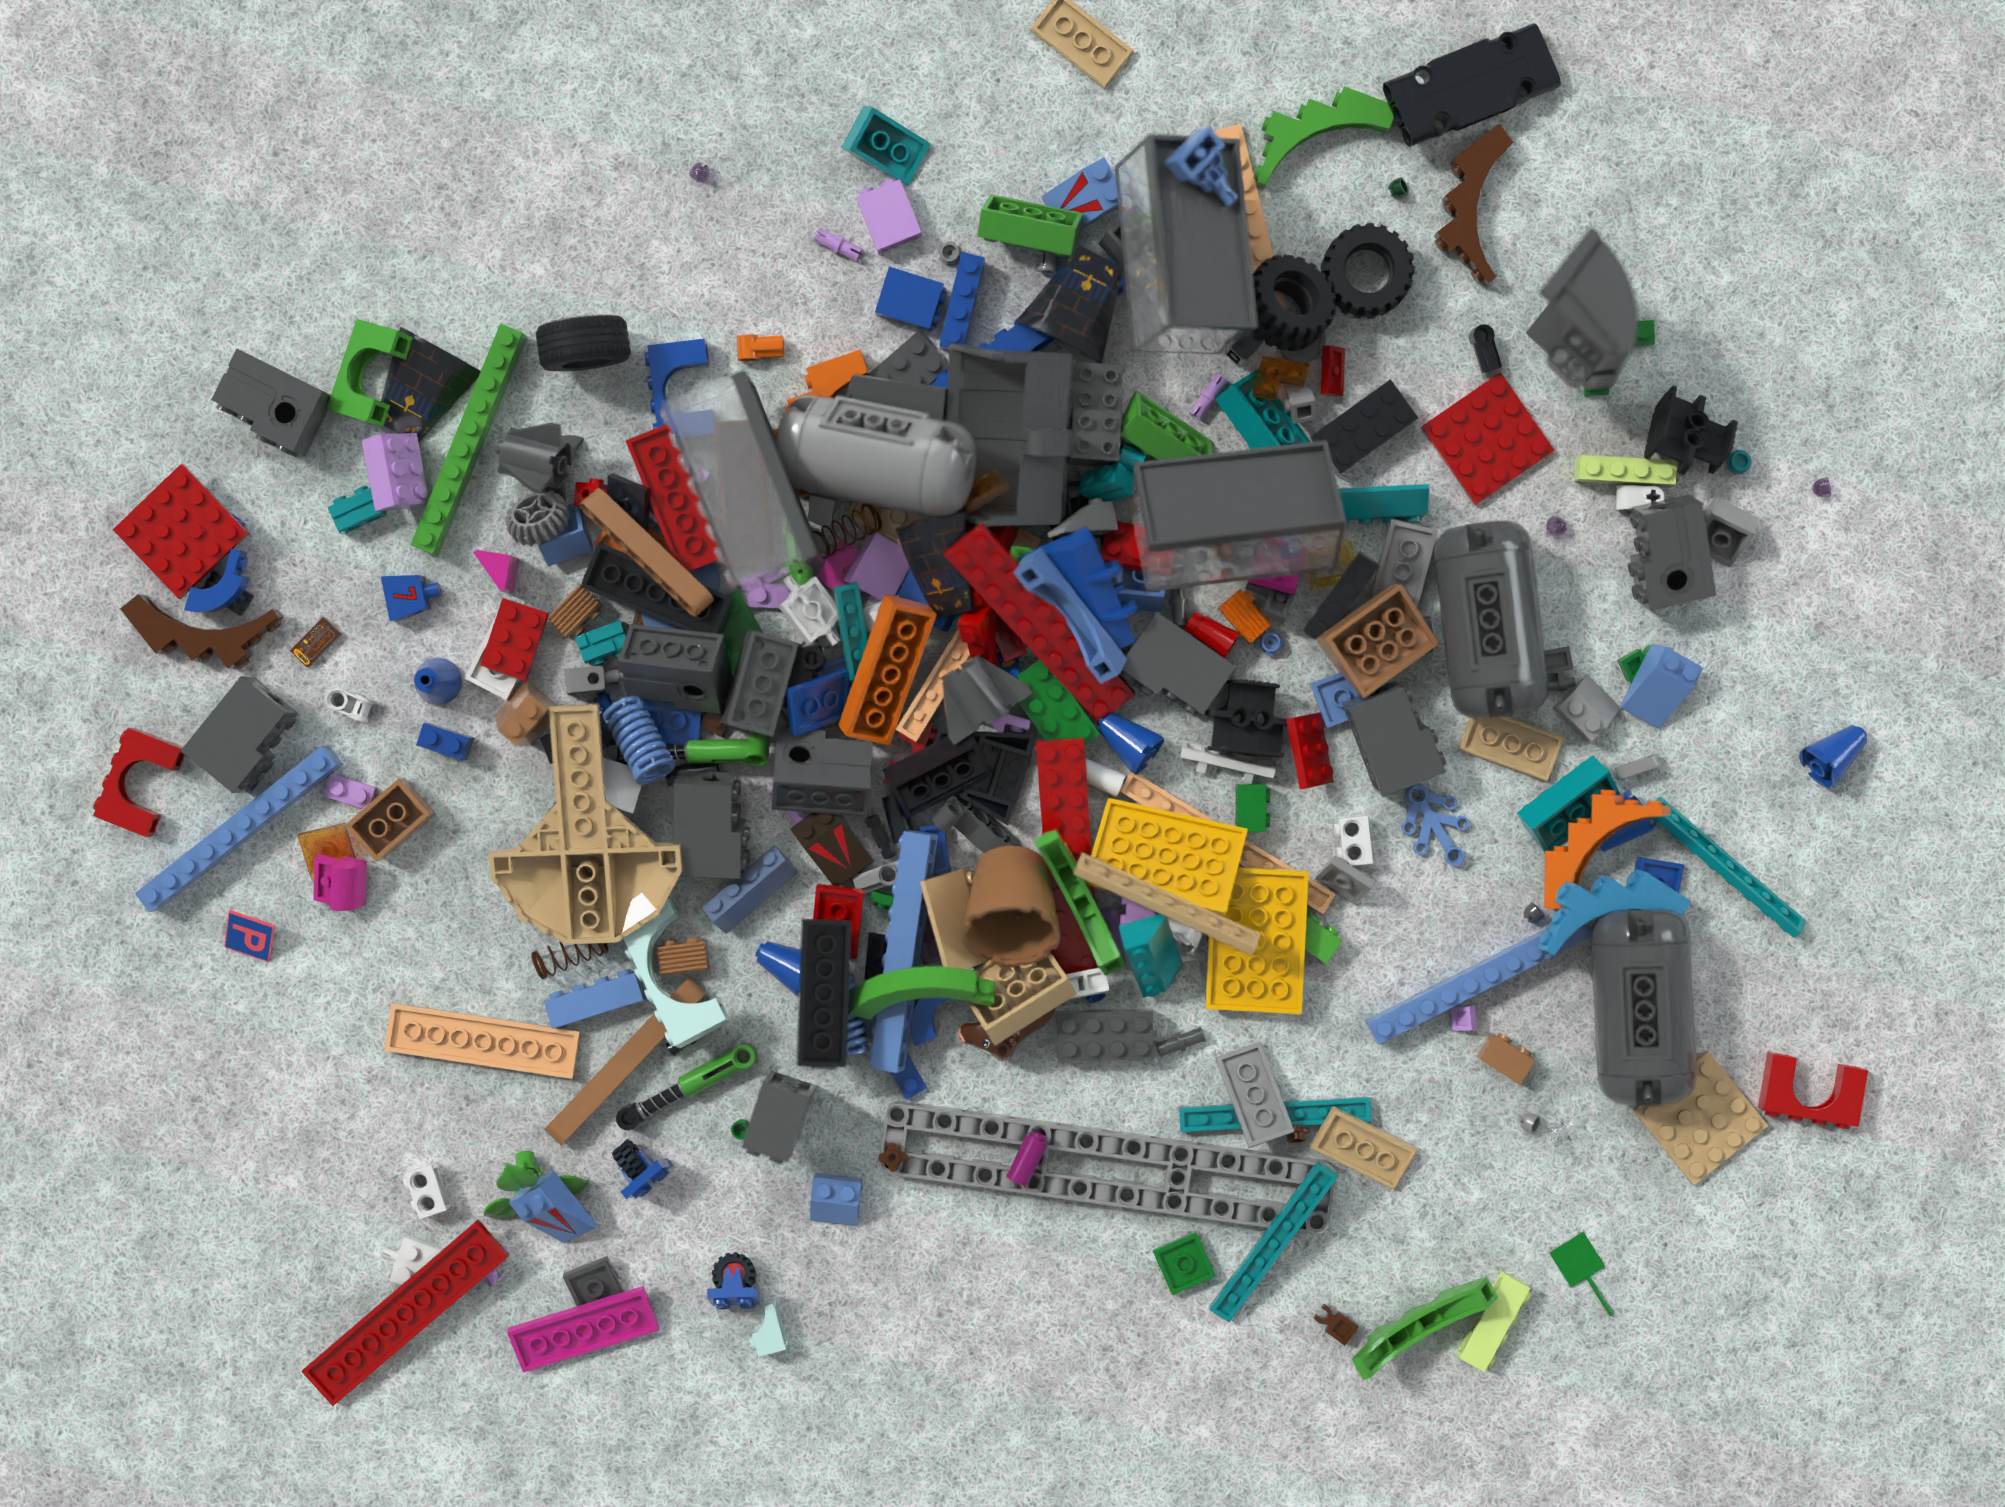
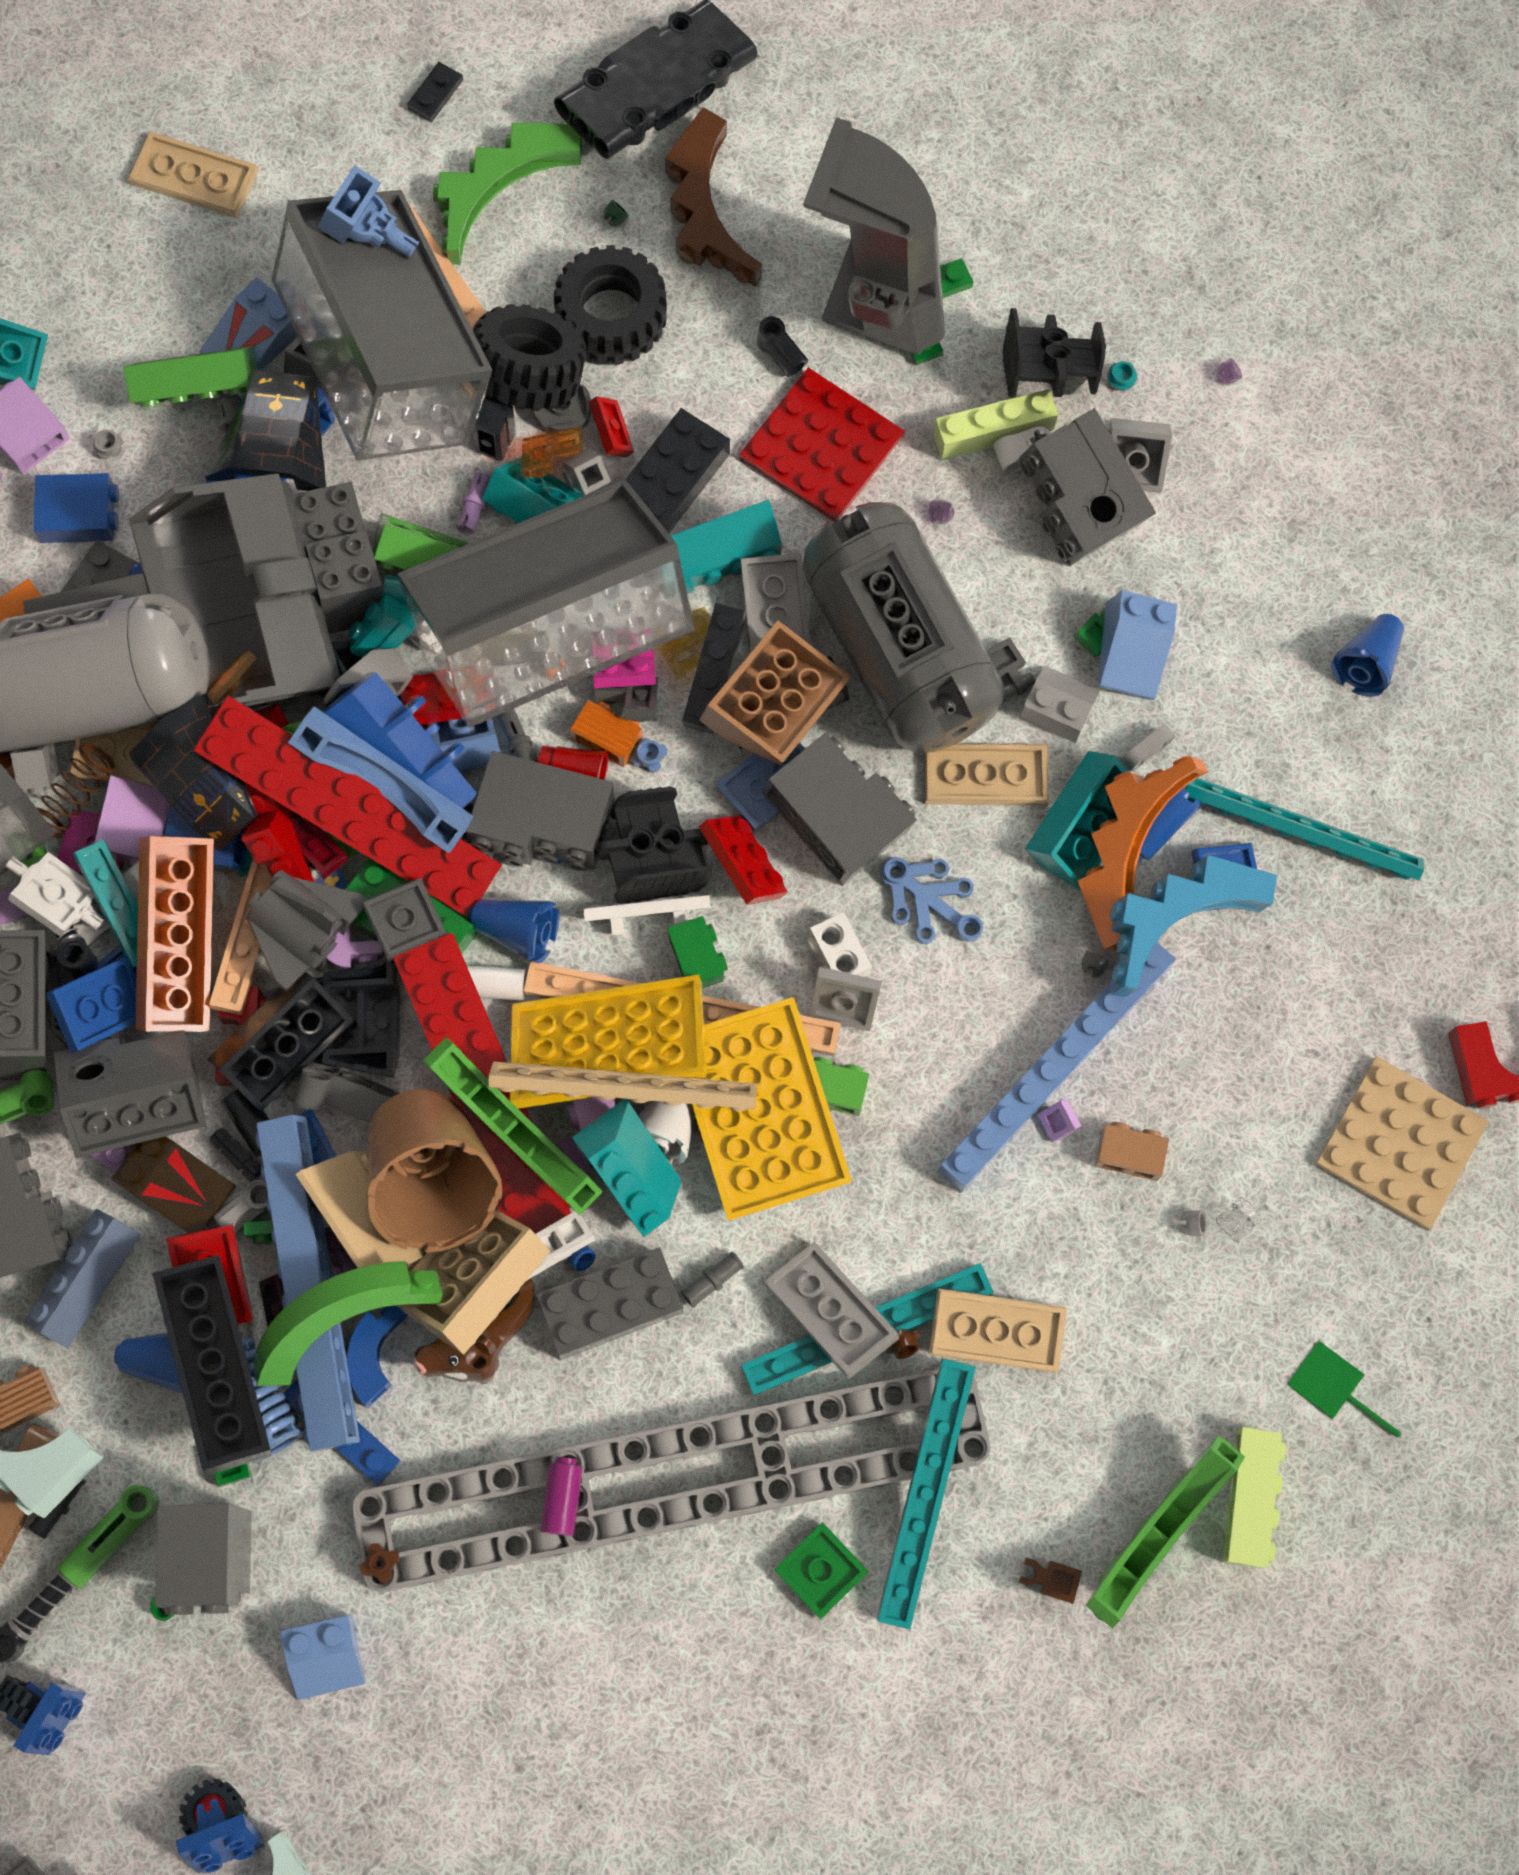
camera: 25 degrees left, 15 degrees down
(962, 300) = (138, 476): blue brick -> none
(1052, 716) = (403, 918): none -> dark grey plate
(1293, 30) = (435, 91): none -> black plate
(1643, 1006) = (1273, 1017): dark grey piece -> none

